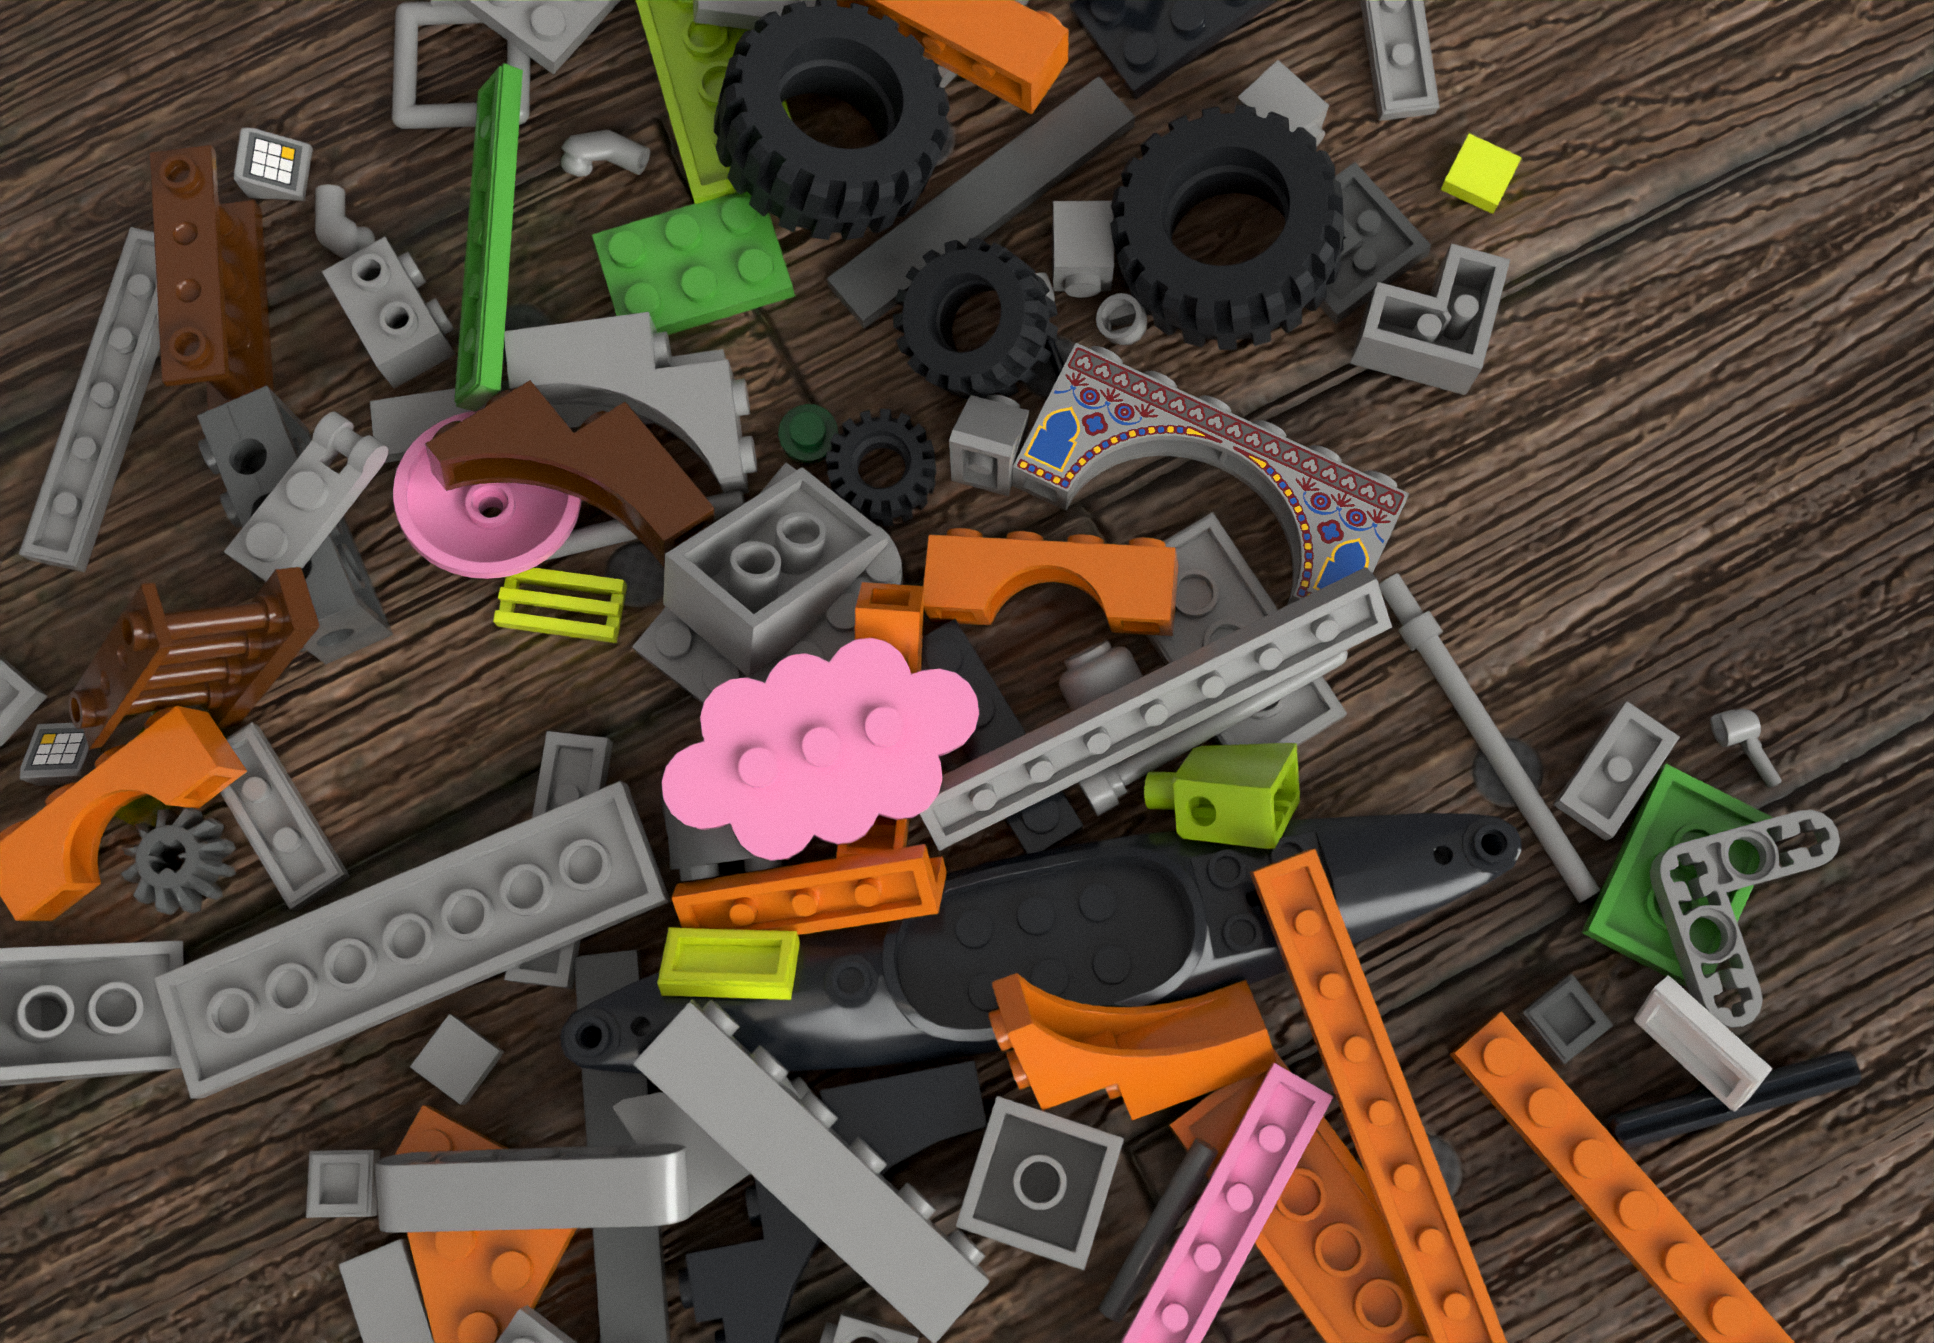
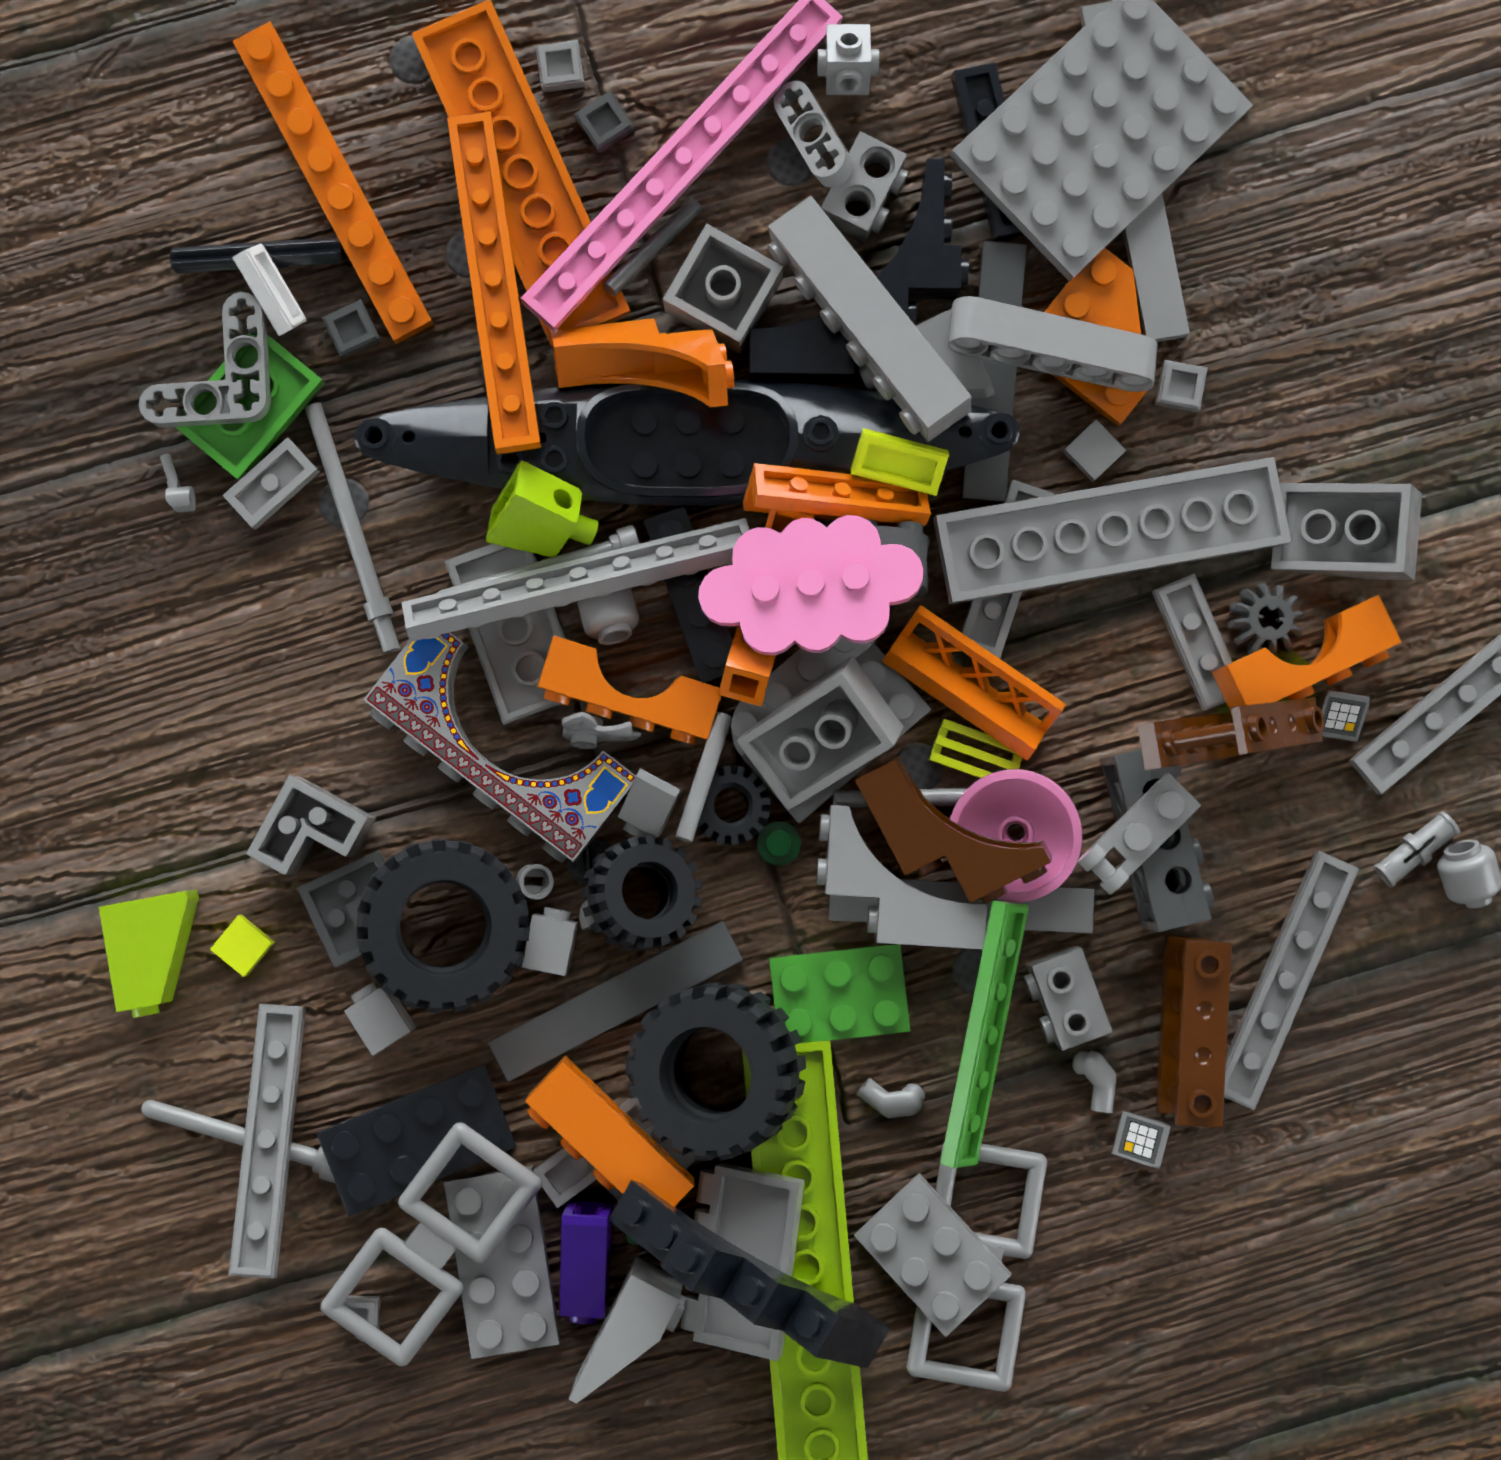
camera: 170 degrees left, 10 degrees up
(584, 680) = (968, 688): none -> orange fence
(923, 482) = (703, 777): none -> light grey bar
(1094, 519) = (587, 730): none -> light grey plate
(1604, 142) = (147, 948): none -> lime slope

